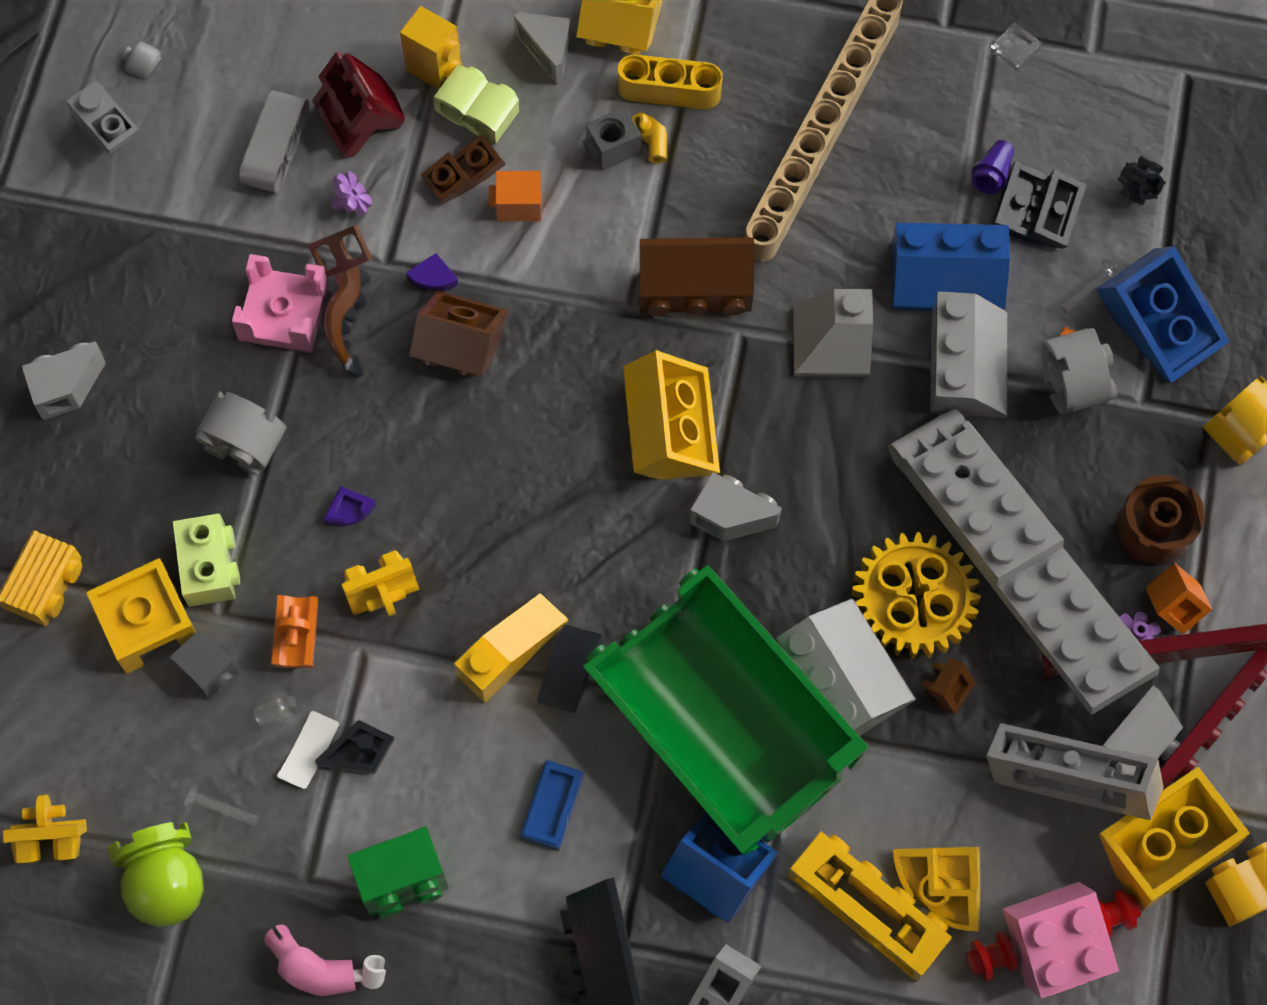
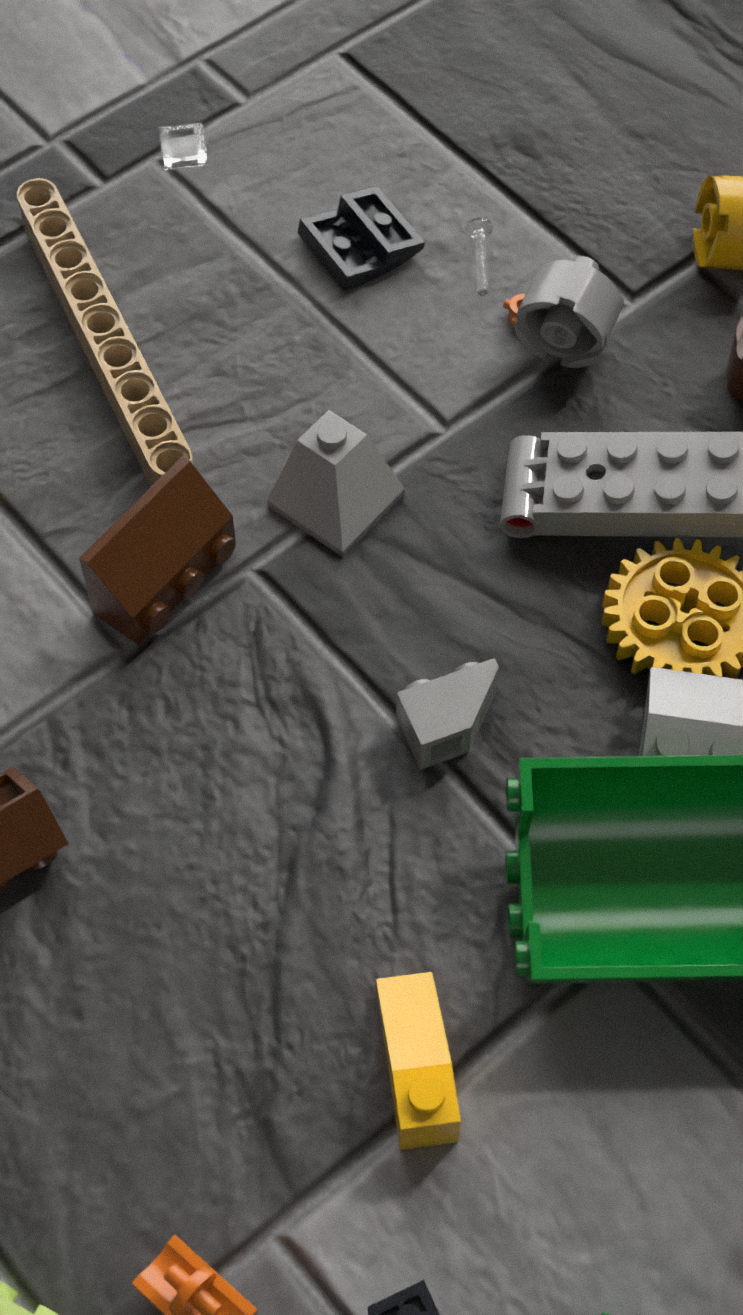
camera: 50 degrees left, 10 degrees down
(348, 508) = (87, 1116): dark purple tile -> none
(381, 586) = (225, 1152): yellow hips -> none
(552, 805) = (646, 1156): blue tile -> none
(565, 675) = (498, 1011): black slope -> none
(670, 417) = (288, 697): yellow slope -> none
(948, 259) = (357, 342): blue slope -> none
(968, 356) = (461, 397): light grey slope -> none
(992, 170) = (290, 242): dark purple cone -> none
(1141, 180) = (416, 143): black gear -> none
(1164, 312) = (558, 214): blue slope -> none

